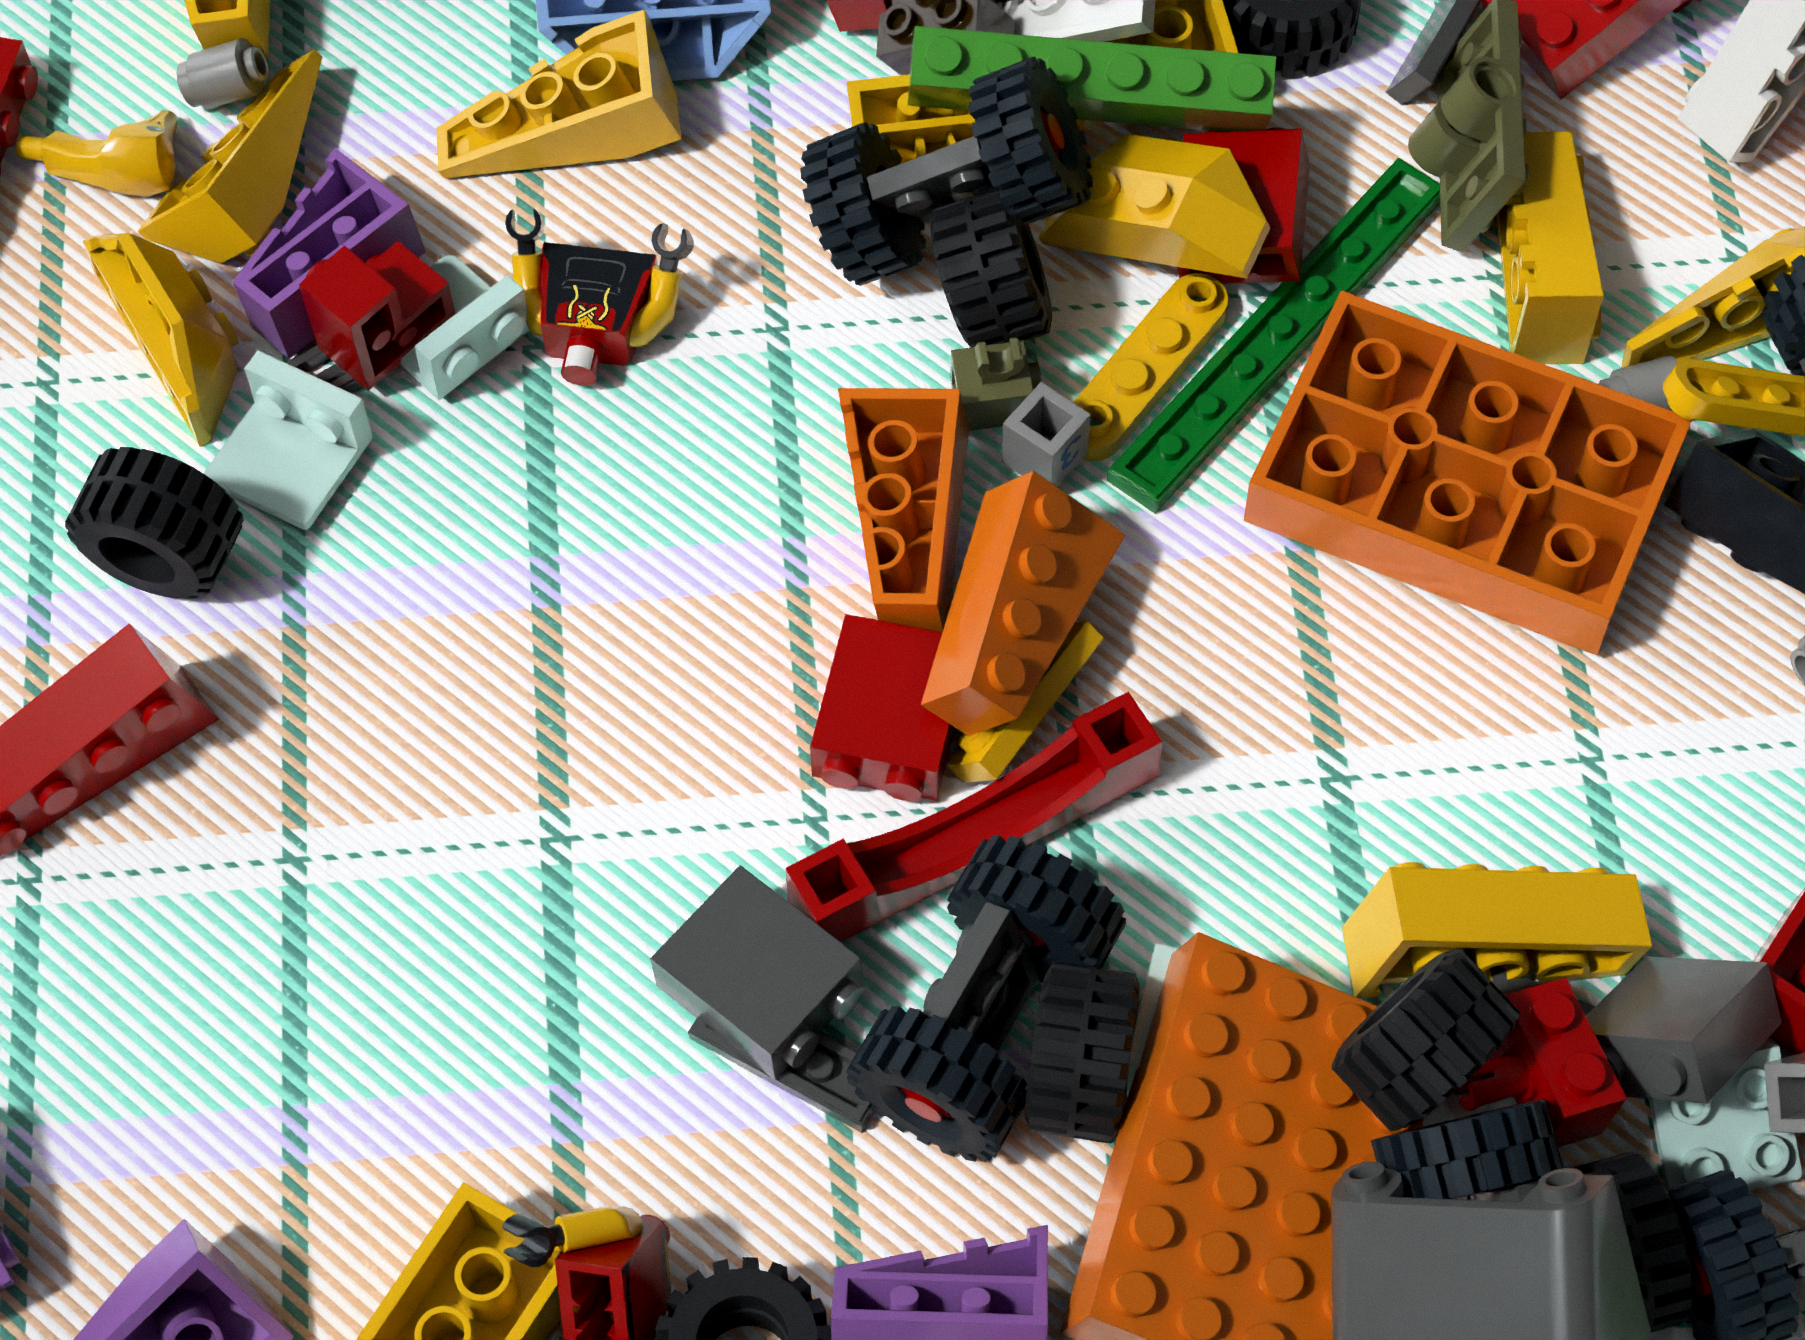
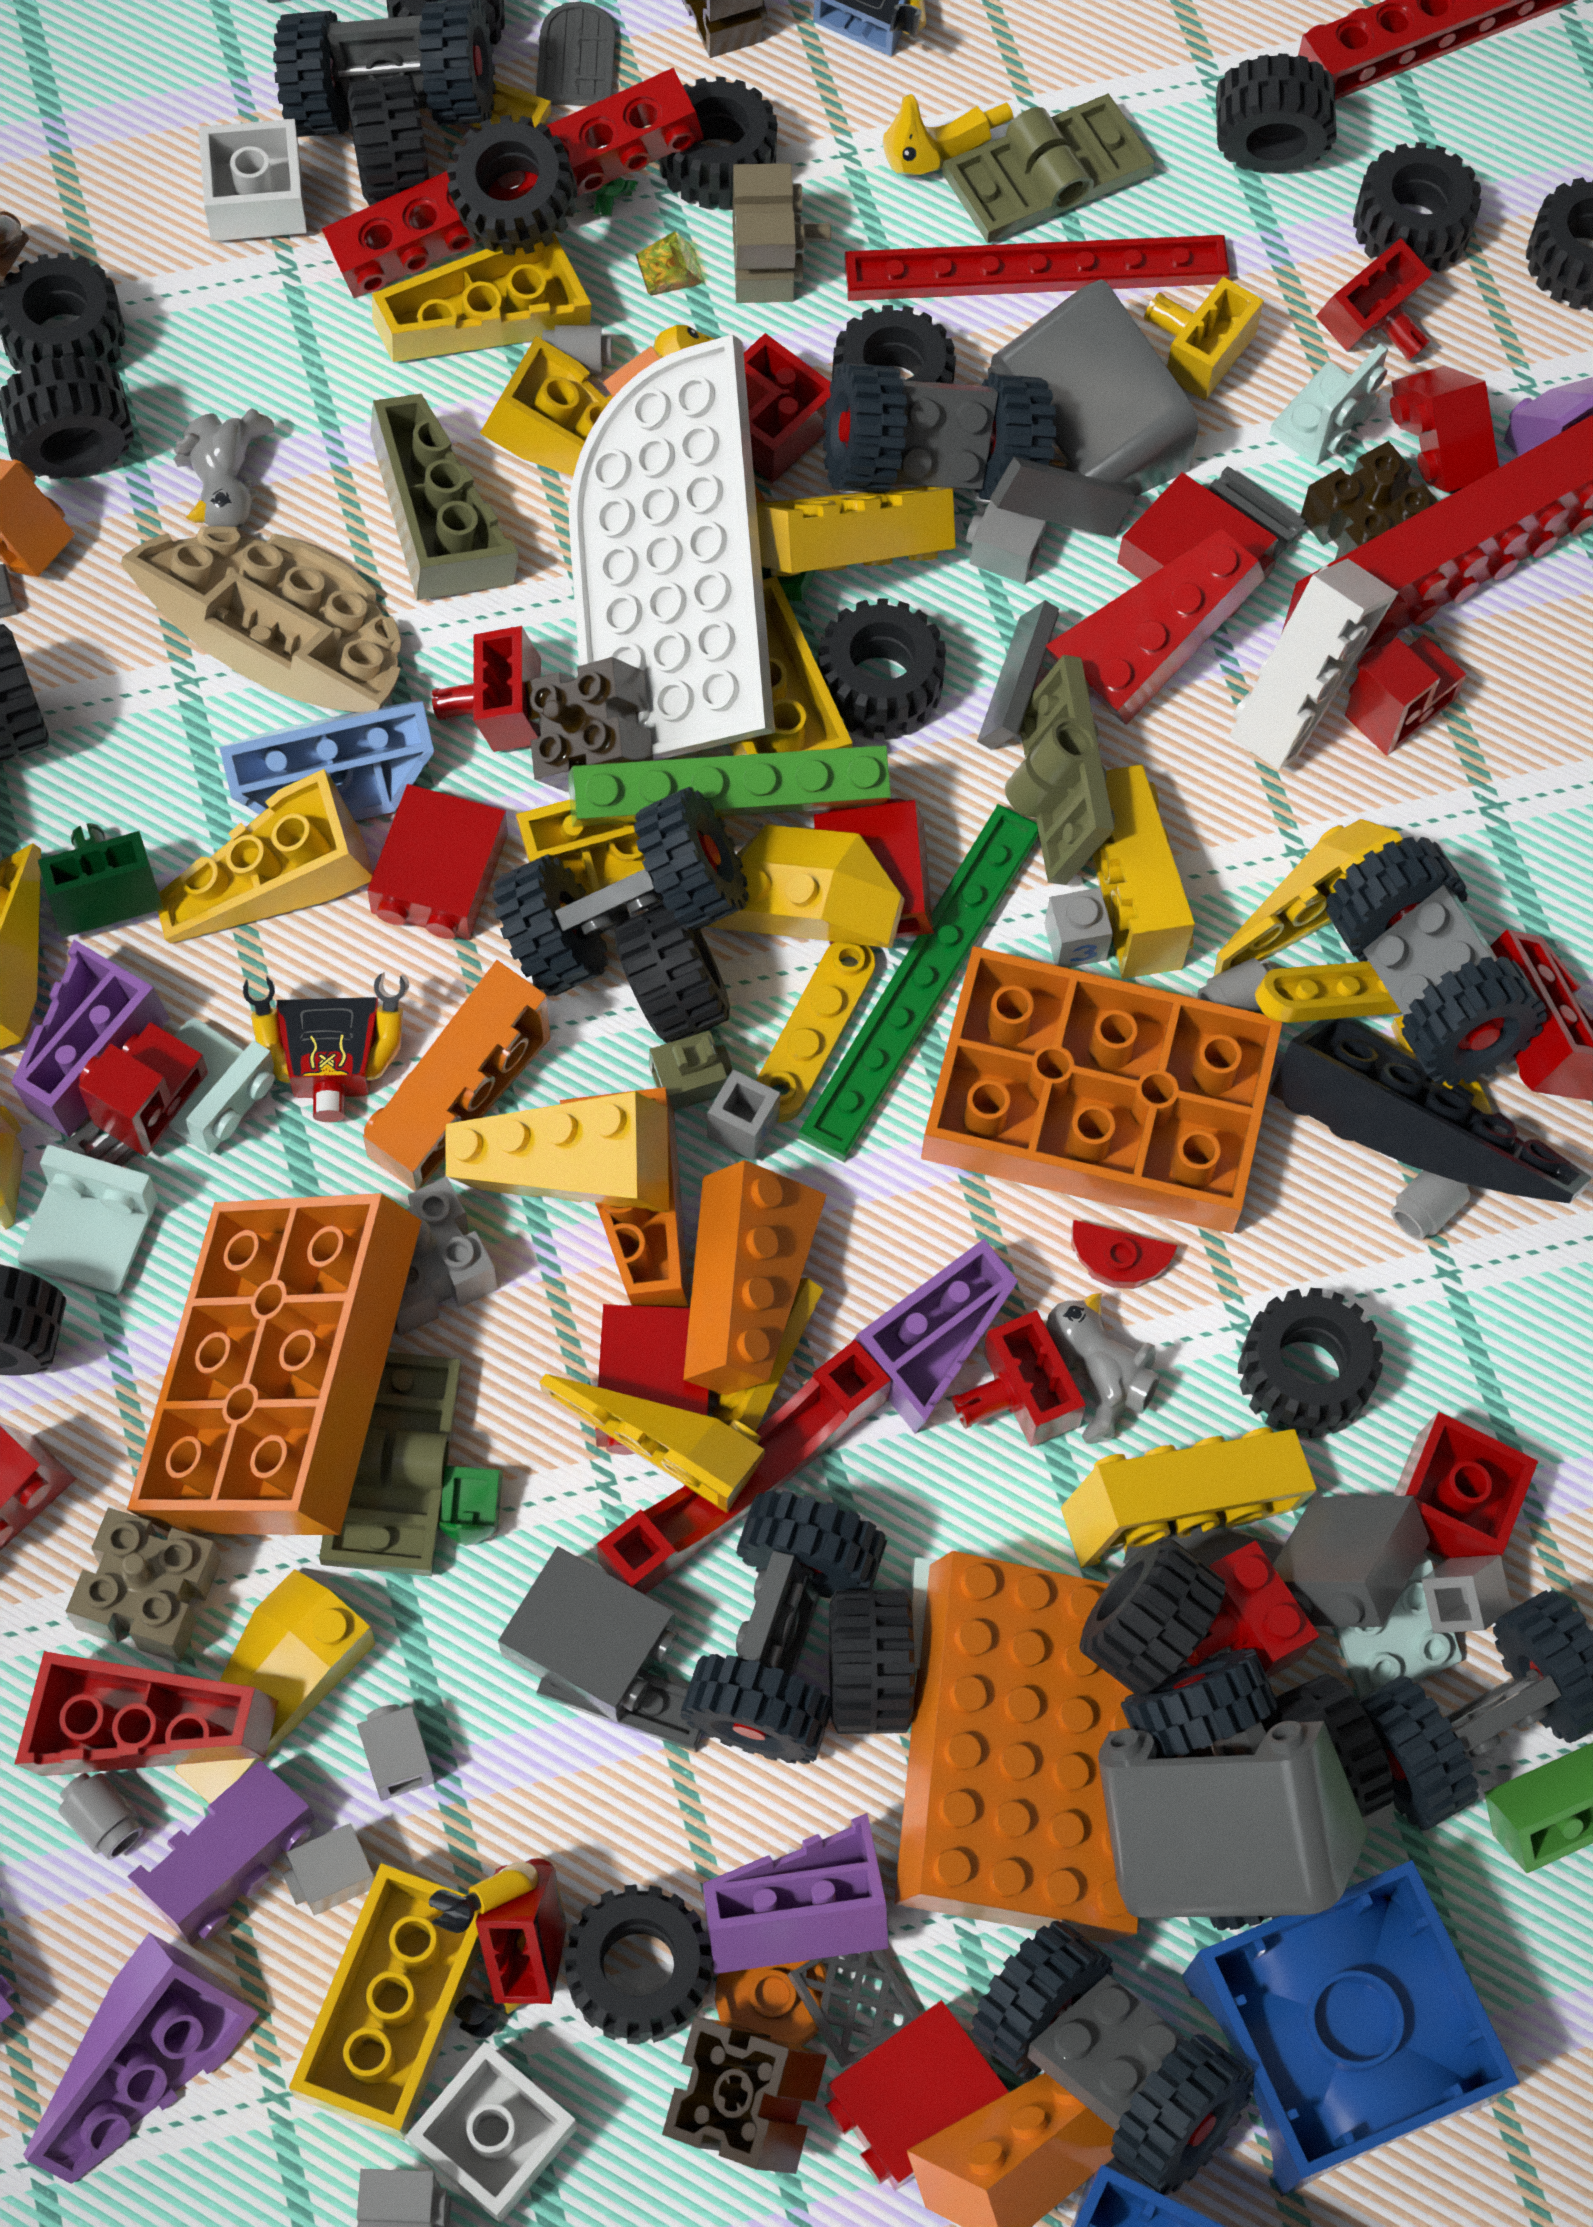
camera: 15 degrees left, 5 degrees up
(160, 1083) = (100, 1815): none -> light grey brick
(220, 977) = (130, 1717): none -> red wedge
(264, 839) = (143, 1585): none -> dark tan brick
(290, 1148) = (225, 1854): none -> medium lavender wedge
(377, 98) = (99, 881): none -> dark green brick
(398, 964) = (294, 1651): none -> yellow wedge
(404, 1187) = (328, 1870): none -> light grey brick
(458, 618) = (276, 1366): none -> orange brick
(510, 1069) = (395, 1751): none -> light grey brick
(571, 753) = (401, 1470): none -> olive plate
(653, 536) = (445, 1258): none -> light grey brick
(653, 811) = (470, 1503): none -> green plate
(733, 351) = (460, 1074): none -> orange wedge
(751, 131) = (437, 863): none -> red brick
(837, 436) = (573, 1151): none -> yellow wedge
(905, 773) = (685, 1445): none -> yellow wedge
(1228, 700) = (935, 1330): none -> medium lavender wedge
(1325, 775) = (1026, 1382): none -> red brick
(1428, 780) = (1113, 1371): none -> light grey animal
(1459, 661) = (1118, 1256): none -> red plate
(1470, 294) = (1078, 928): none -> light grey brick
(1677, 761) = (1318, 1322): none -> black tyre

